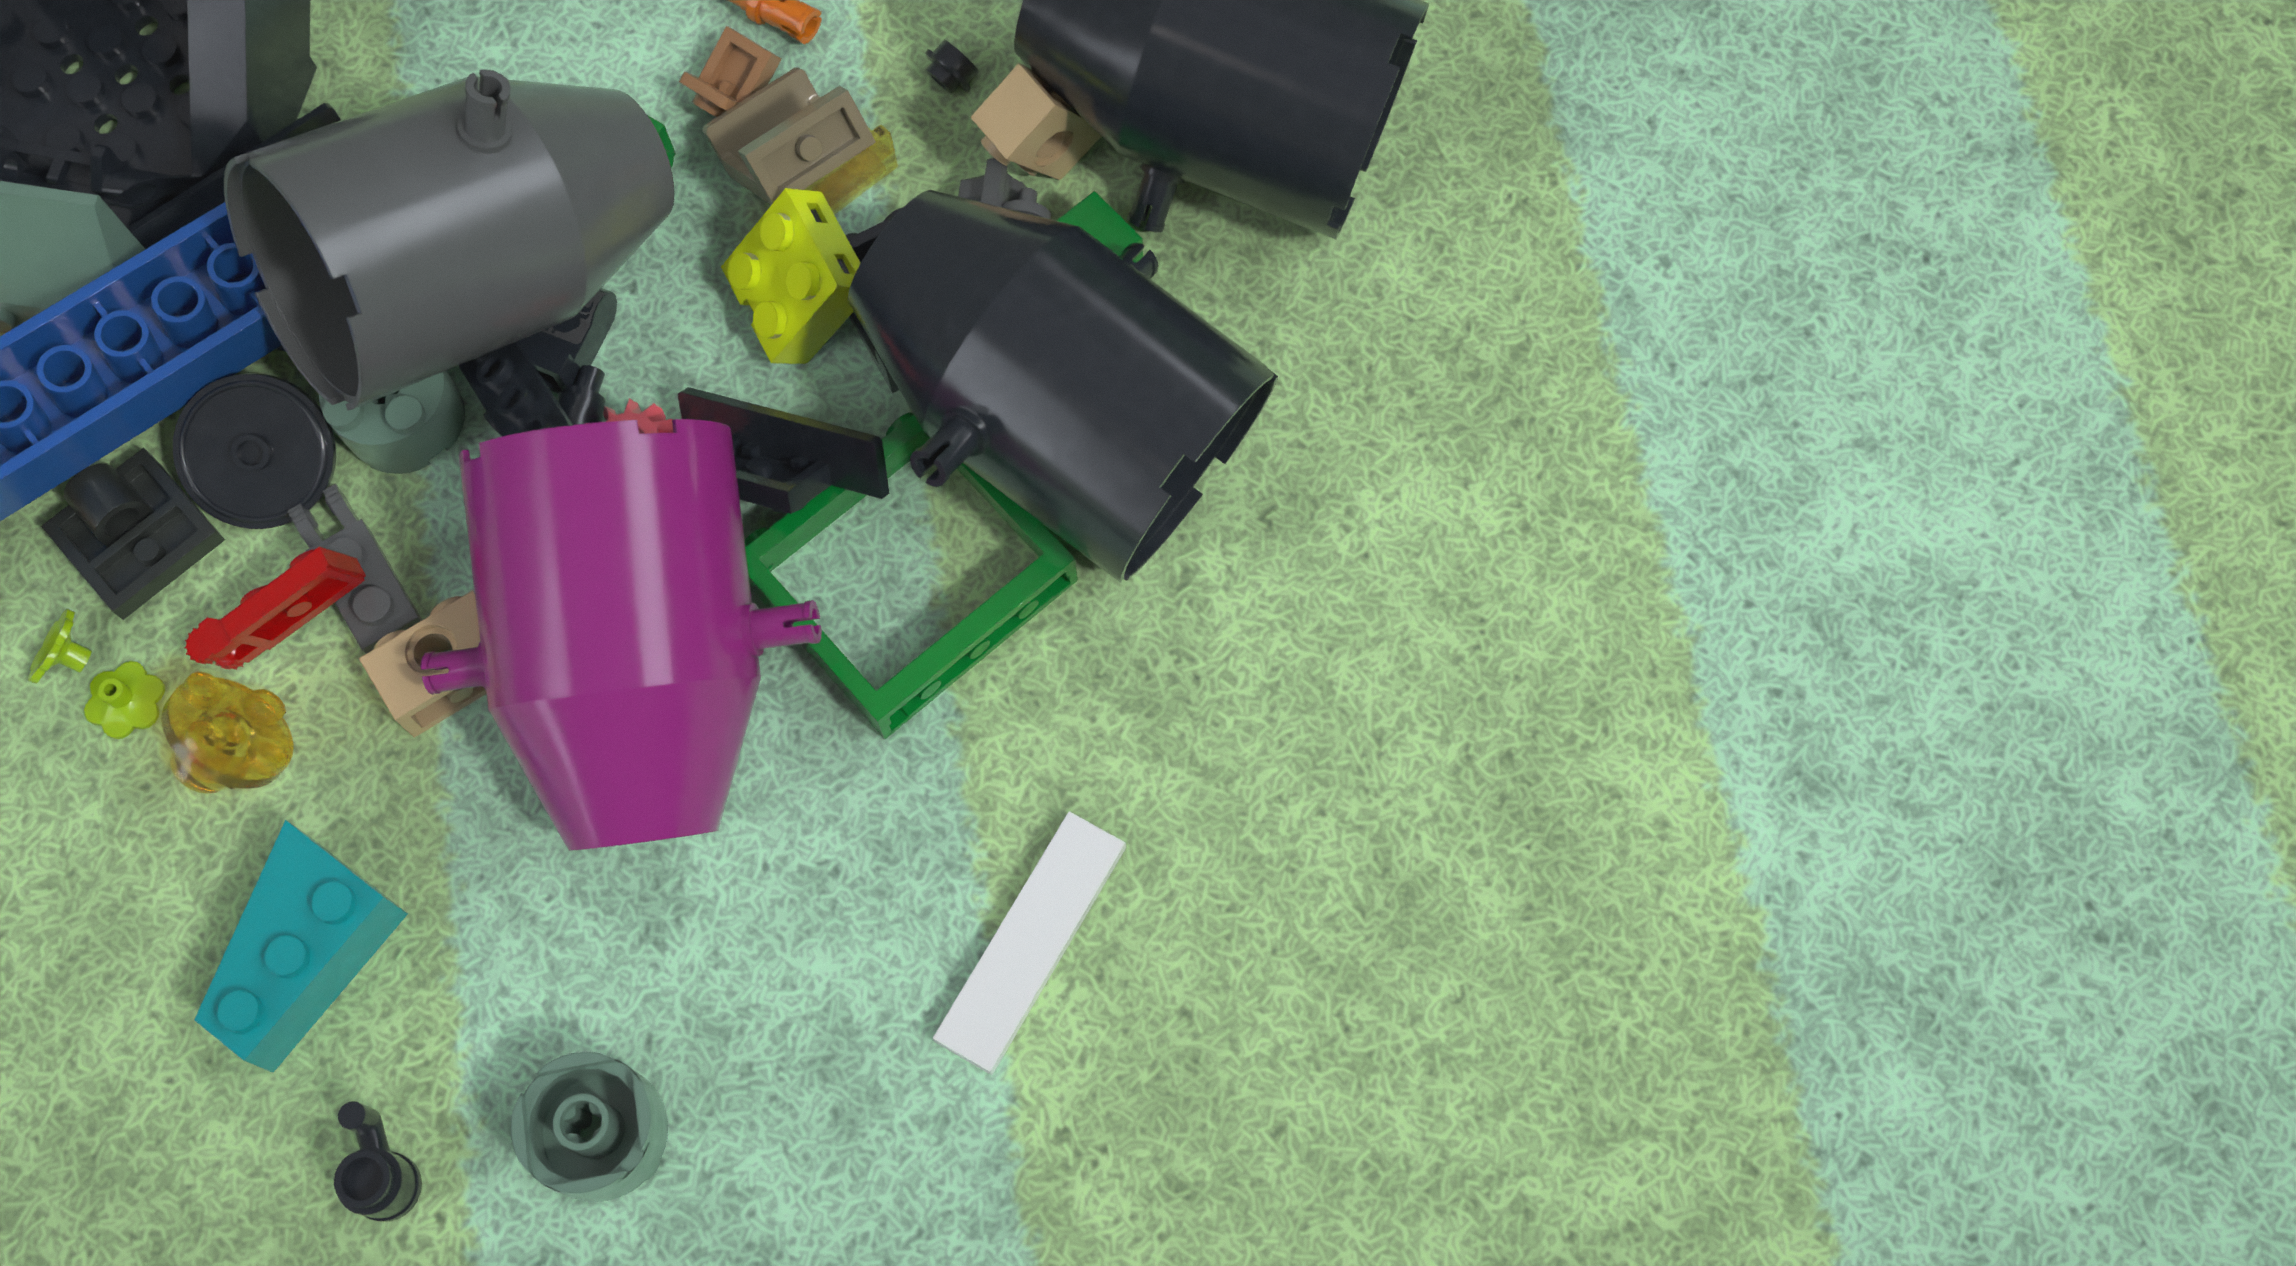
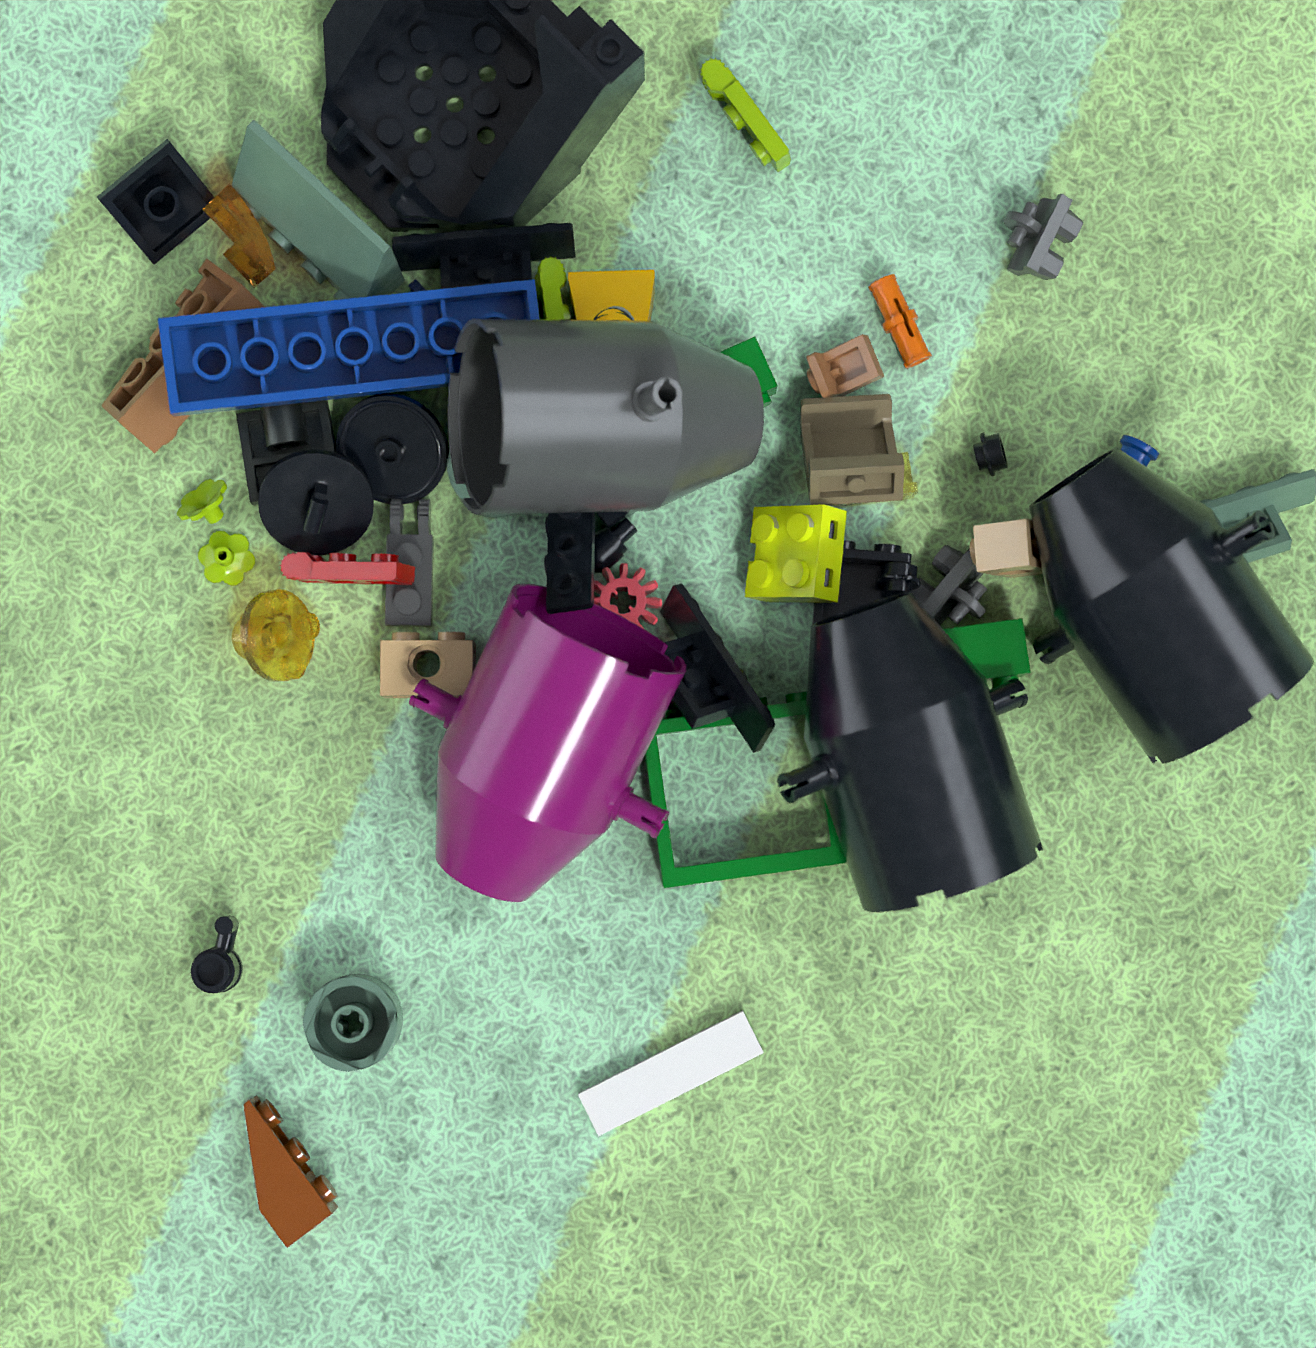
camera: 30 degrees right, 15 degrees up
(188, 555) = (316, 502): none -> black shield
(293, 950) = (246, 796): teal wedge -> none

